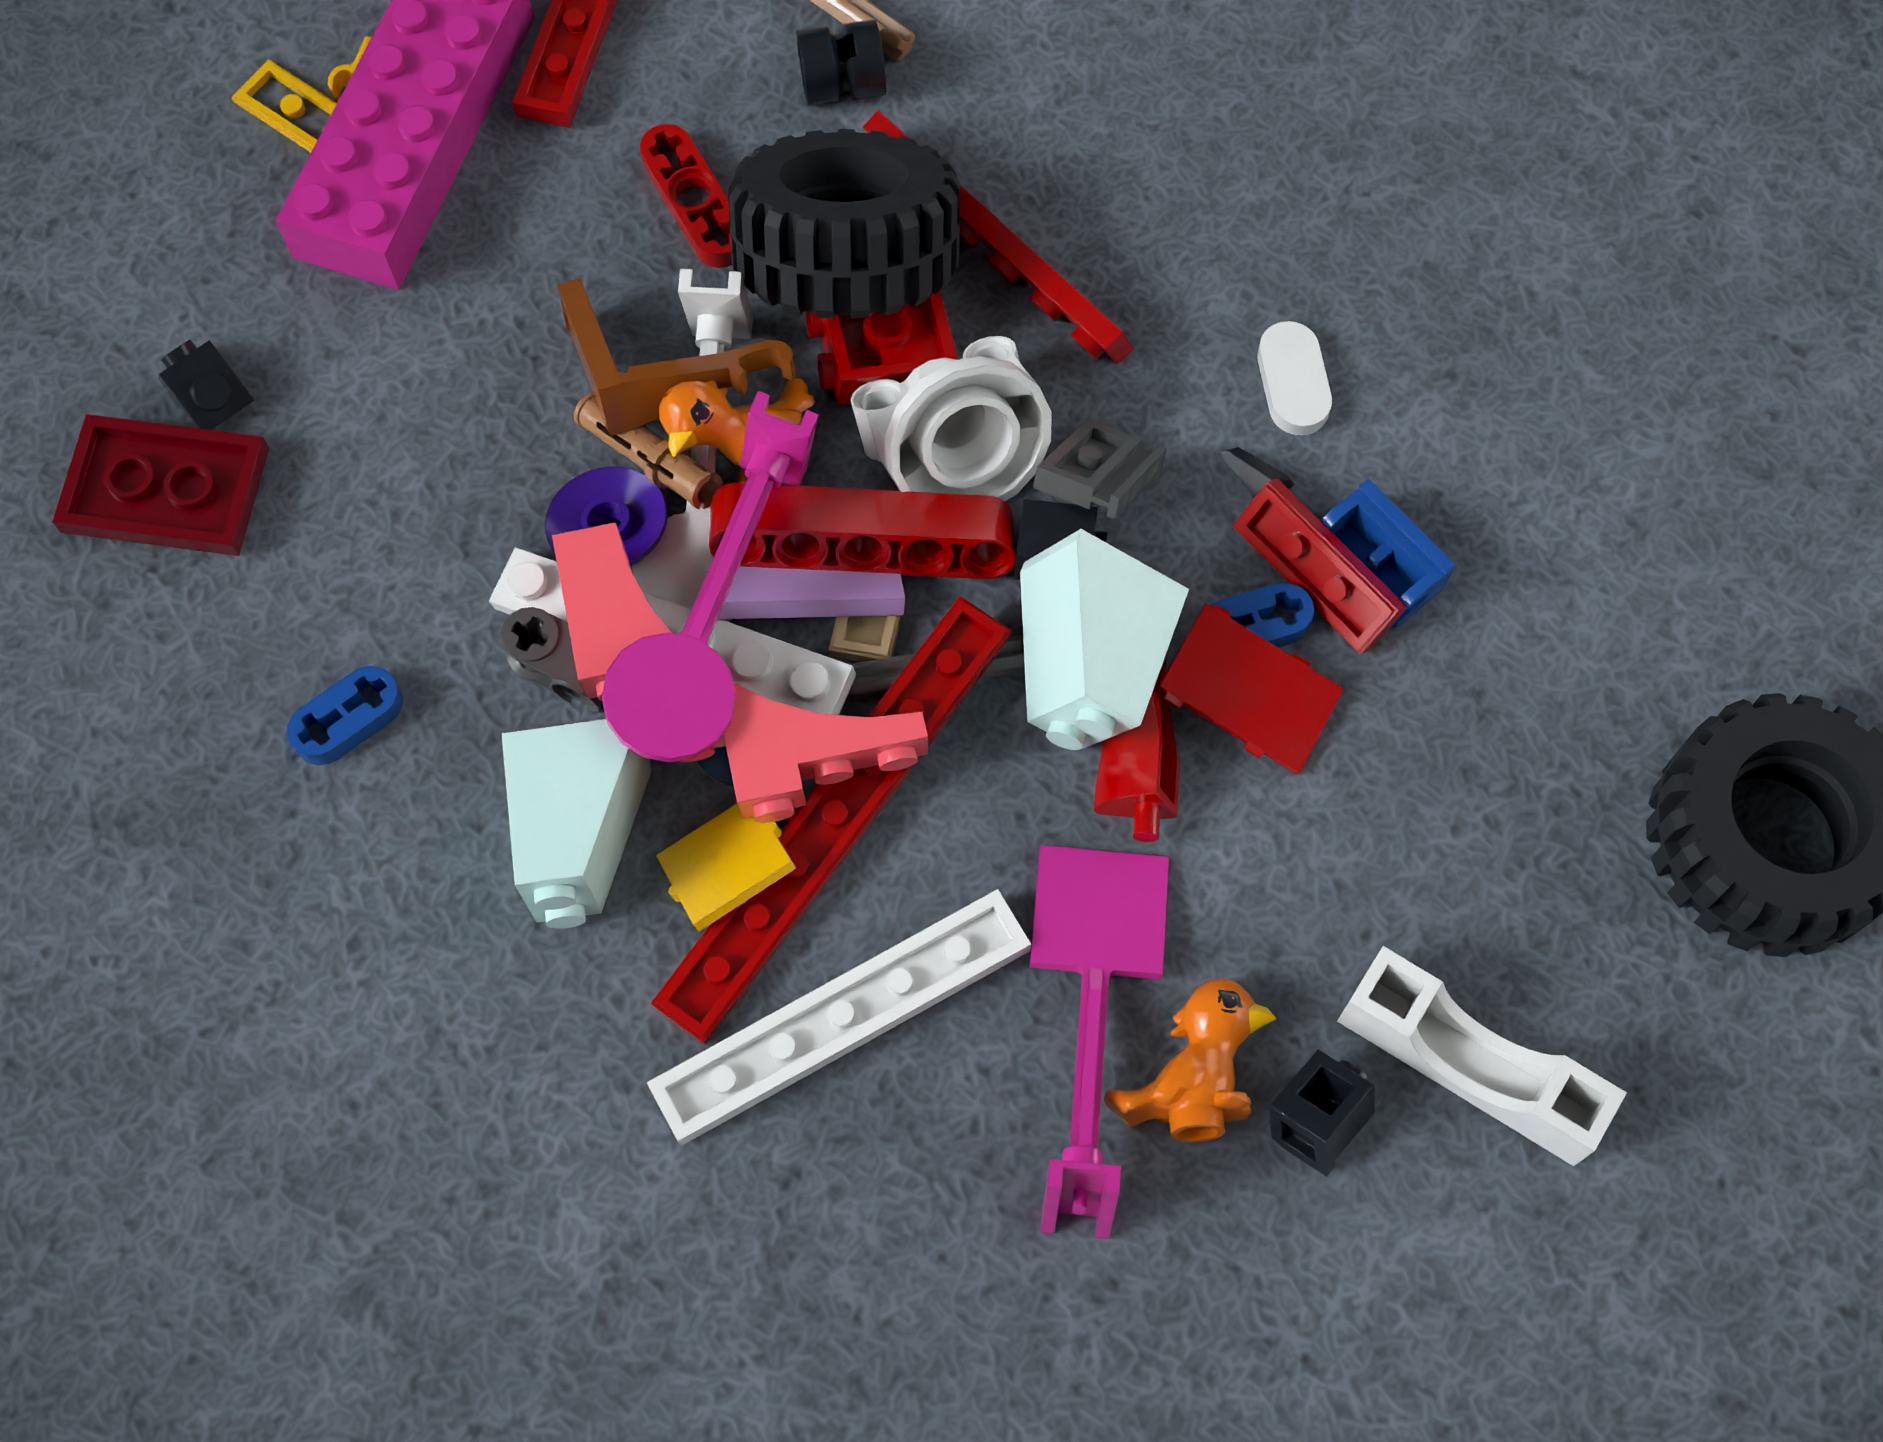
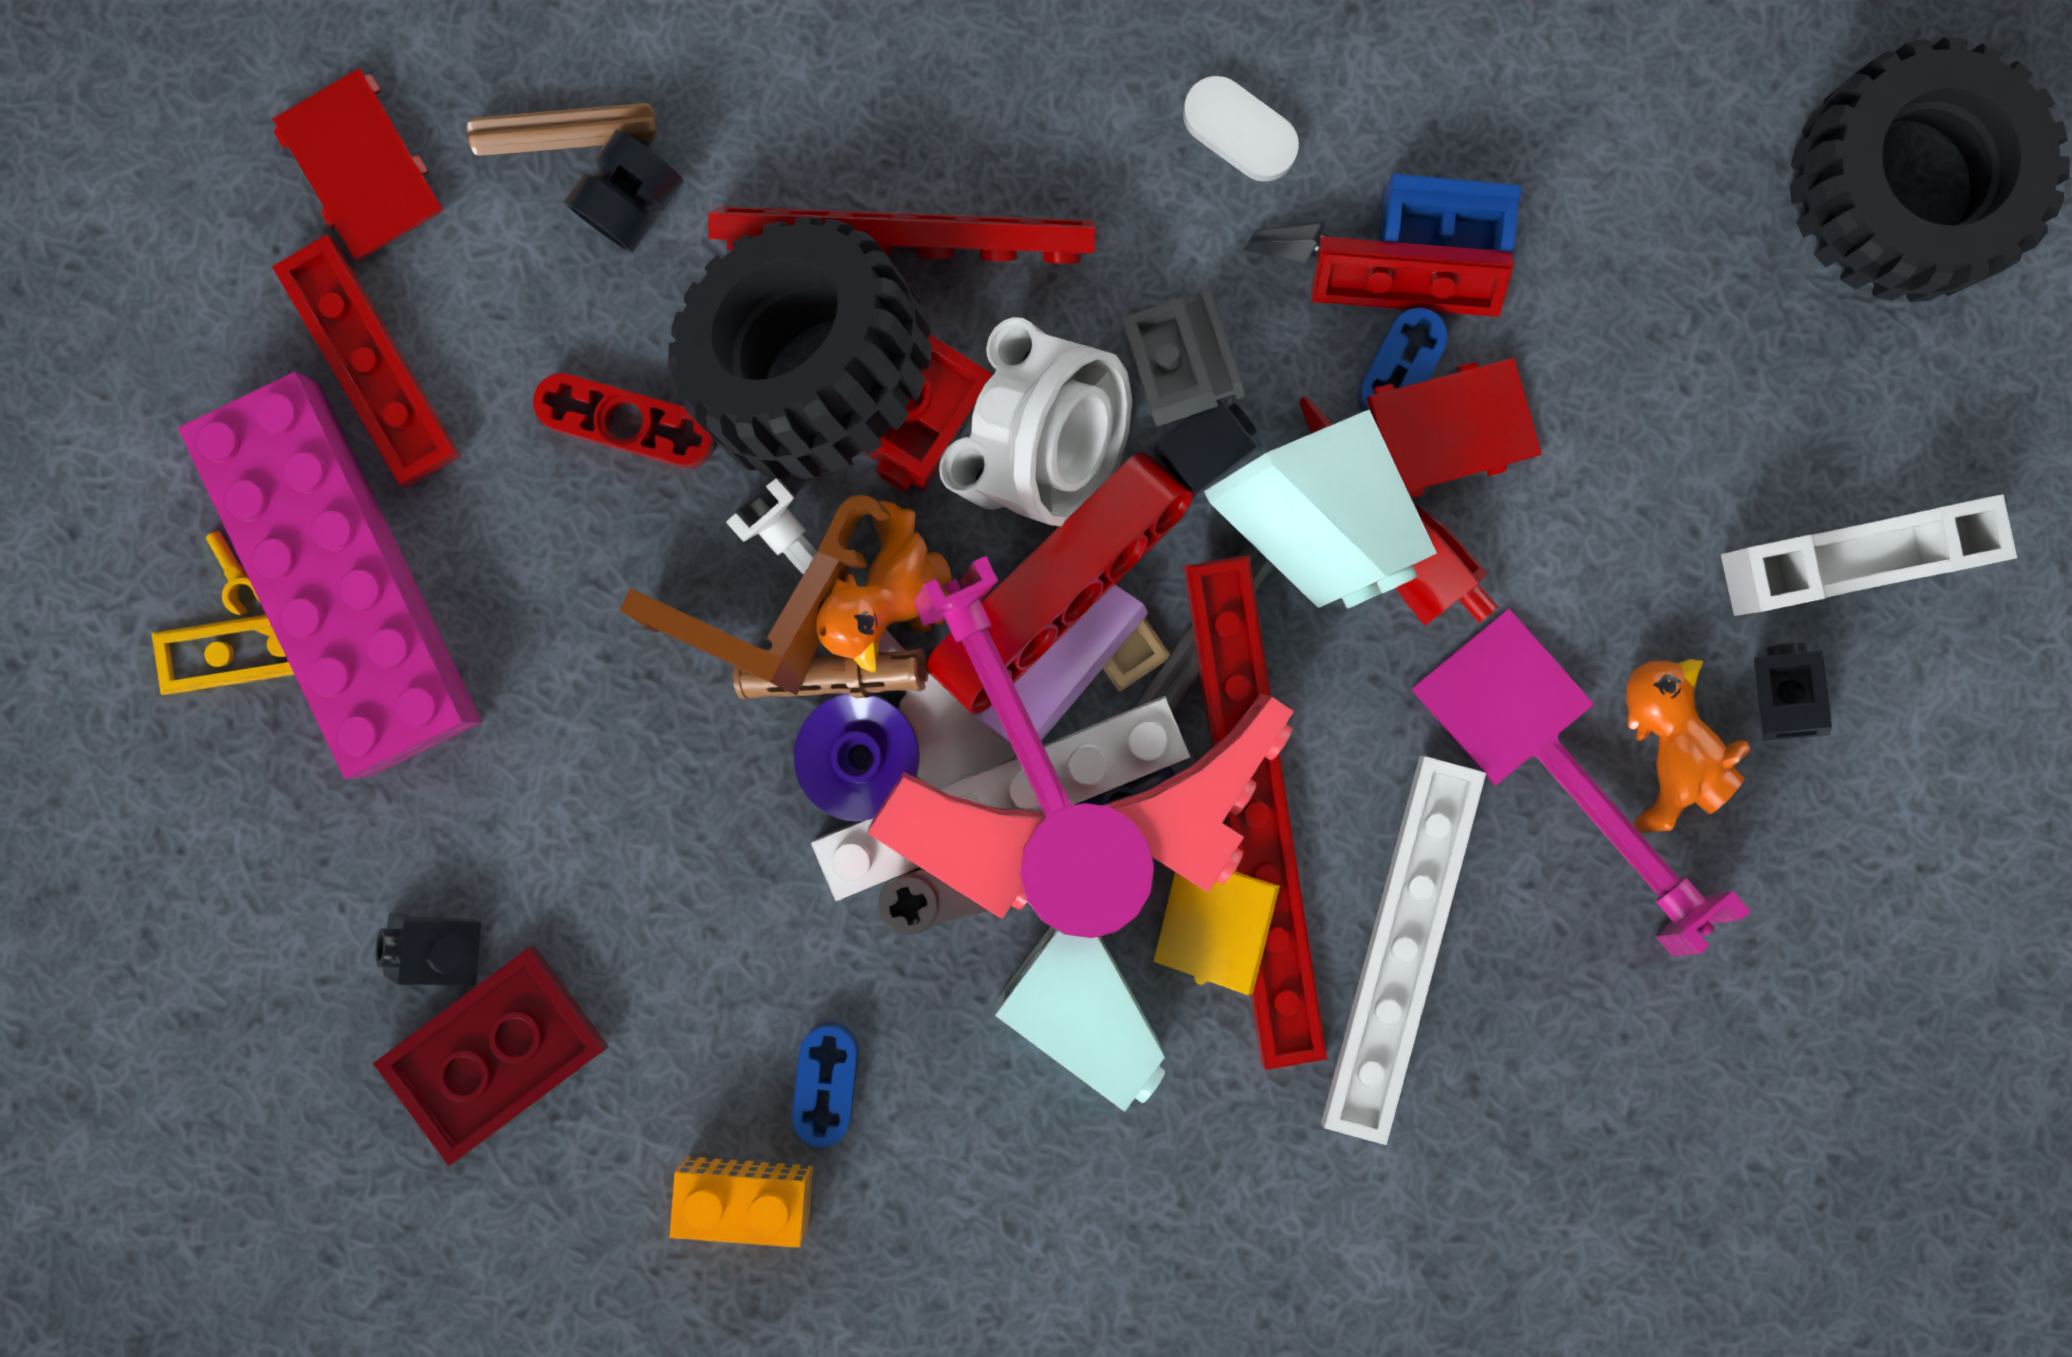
camera: 45 degrees left, 20 degrees up
(201, 728) = (741, 1201): none -> light orange brick

